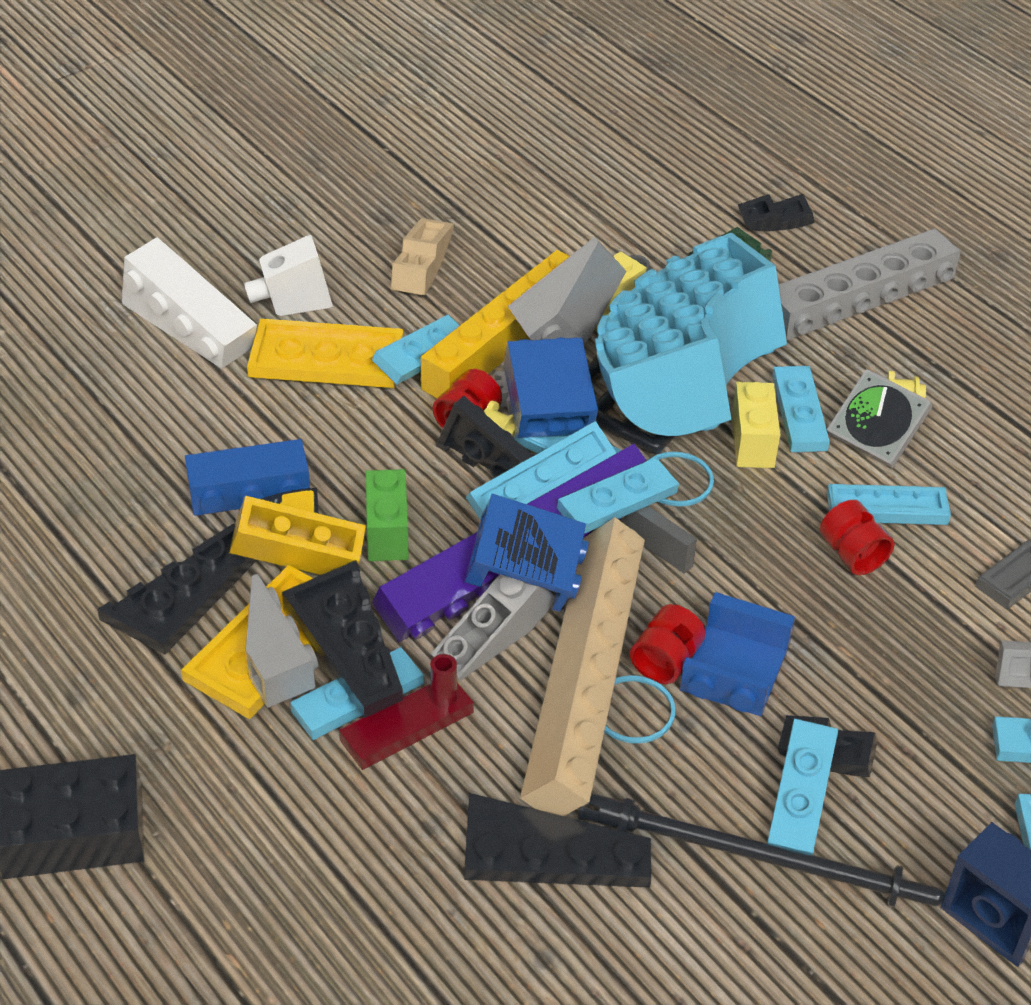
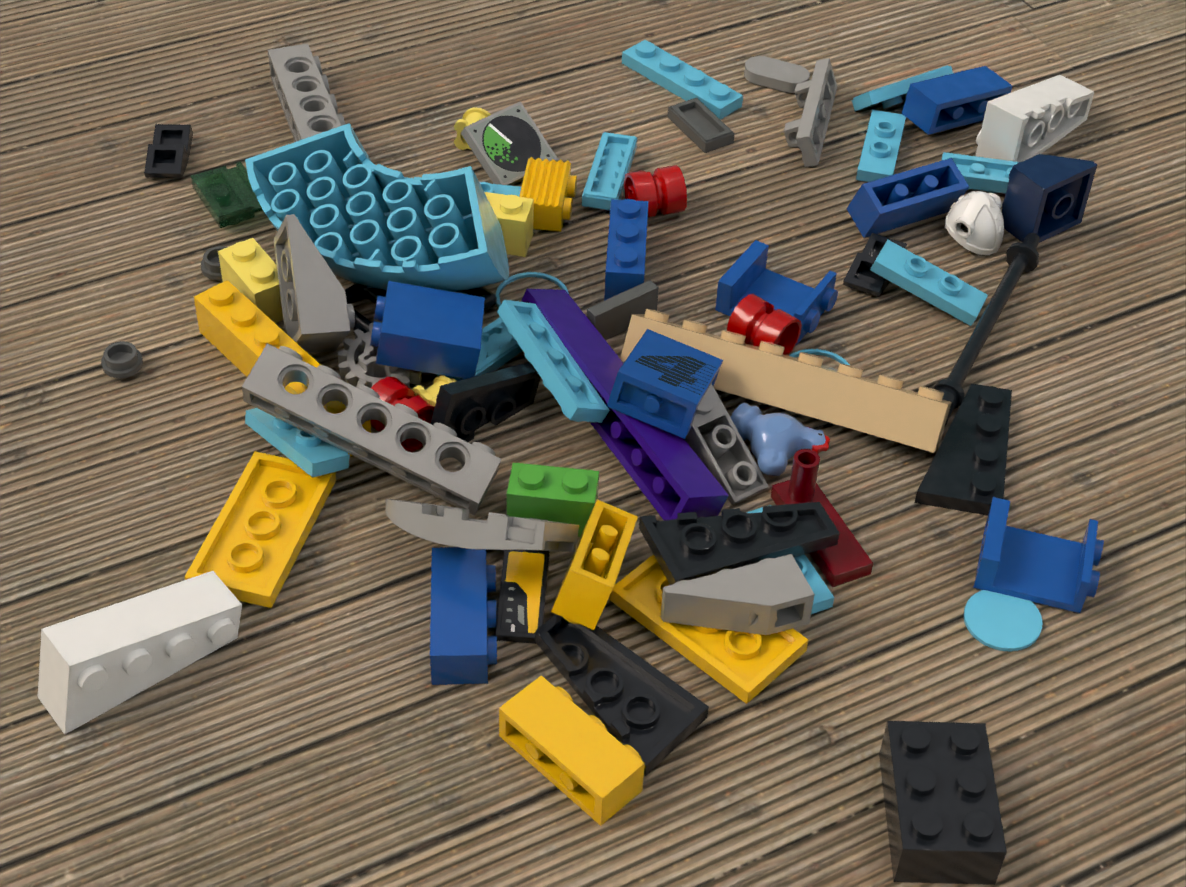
camera: 80 degrees left, 0 degrees up
(113, 562) = (572, 749): none -> yellow brick
(291, 279) = (131, 545): white torso -> none
(319, 452) = (499, 532): none -> light grey slope
(319, 882) = (1002, 620): none -> medium azure piece
(394, 897) = (1037, 564): none -> blue panel
(413, 372) = (344, 430): none -> light grey brick
(421, 256) = (120, 422): tan slope -> none
(496, 242) = (121, 360): none -> dark grey plate
(511, 667) = (775, 437): none -> medium blue animal
(619, 495) = (594, 314): medium azure plate -> none
(750, 525) = (626, 246): none -> blue brick
(820, 458) = (550, 187): none -> yellow brick
(933, 835) = (982, 217): none -> white helmet
(943, 755) = (907, 197): none -> blue brick

